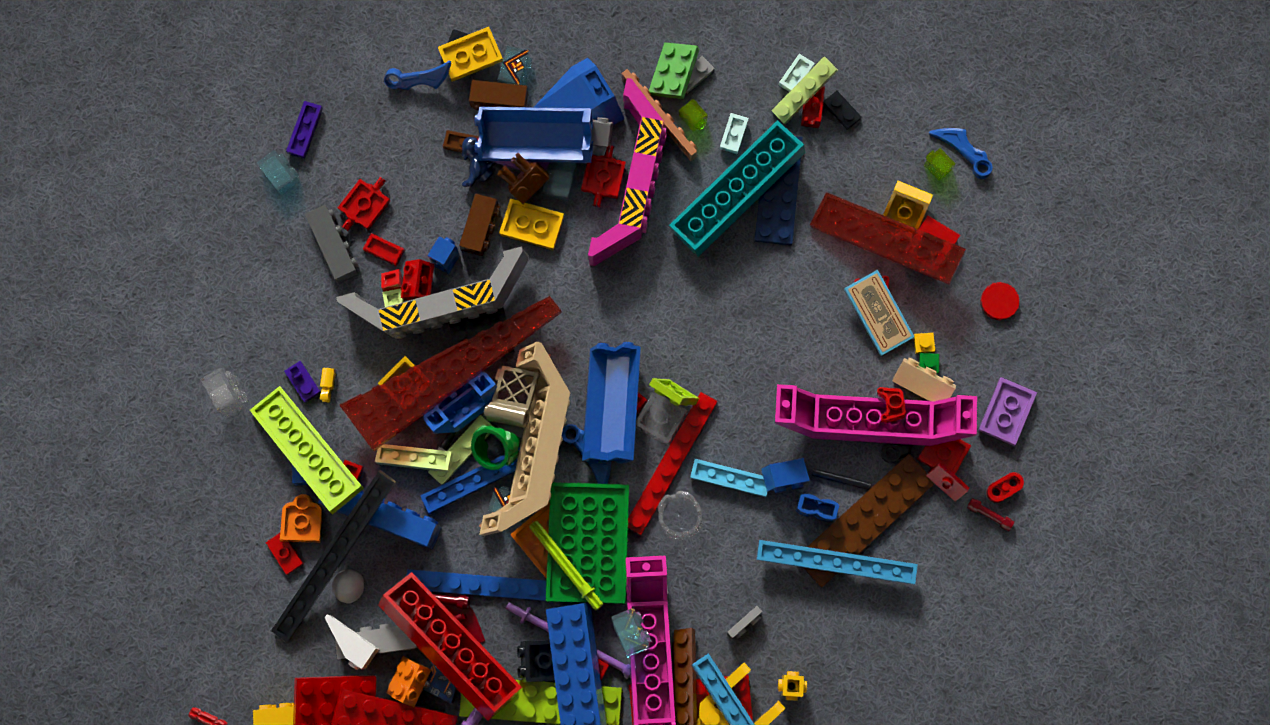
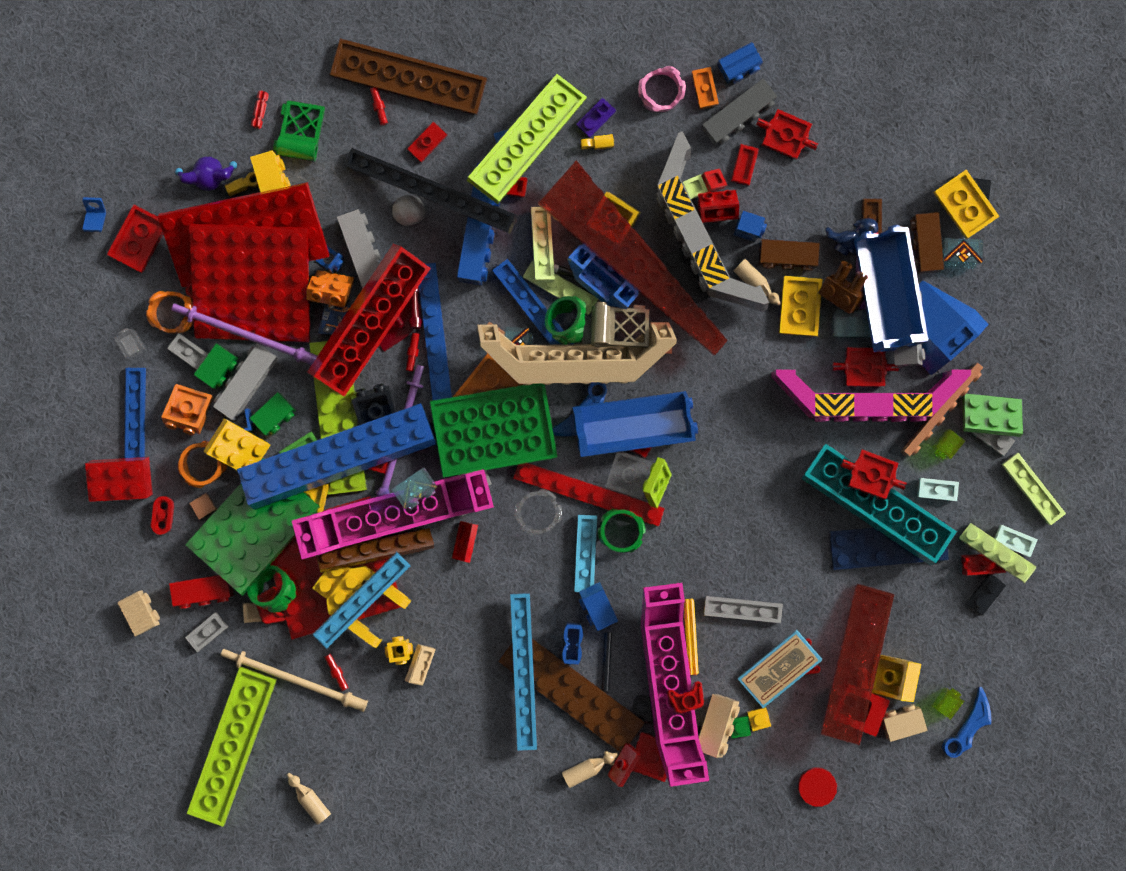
camera: 75 degrees right, 10 degrees up
(214, 559) = (408, 77): none -> reddish brown plate
(224, 392) = (567, 46): clear brick -> none
(235, 594) = (379, 106): none -> red bar
(252, 690) = (293, 144): none -> green piece
(278, 173) = (801, 41): clear light blue brick -> none
(285, 234) = (740, 63): none -> blue brick
(300, 271) = (705, 88): none -> orange plate
(300, 327) = (648, 102): none -> bright pink piece
(301, 520) = (460, 150): orange plate -> none
(304, 129) = (852, 55): dark purple plate -> none
(353, 646) = (350, 230): white slope -> none
(385, 671) = (335, 264): none -> blue bracket
(431, 77) = (933, 170): blue piece -> none
(488, 266) = (755, 278): none -> tan wheel
(492, 611) = (412, 352): none -> red bar
(582, 586) = (449, 434): lime axle -> none
(694, 596) = (465, 541): none -> red plate
(708, 185) = (873, 474): none -> red plate
(728, 423) = (641, 530): none -> green piece
(750, 48) = (1033, 489): none -> yellowish green plate
(752, 617) = (455, 599): light grey plate -> none
(811, 667) = (420, 664): none -> tan plate
(814, 336) = (743, 609): none -> light grey plate
(827, 390) = (690, 632): none -> yellow axle
(945, 519) = (587, 769): none -> tan wheel
(951, 207) = (904, 722): none -> tan brick
(1004, 487) = (630, 821): red plate -> none
(1005, 522) = (596, 827): dark red bar -> none
(1007, 411) = (706, 812): medium lavender plate -> none

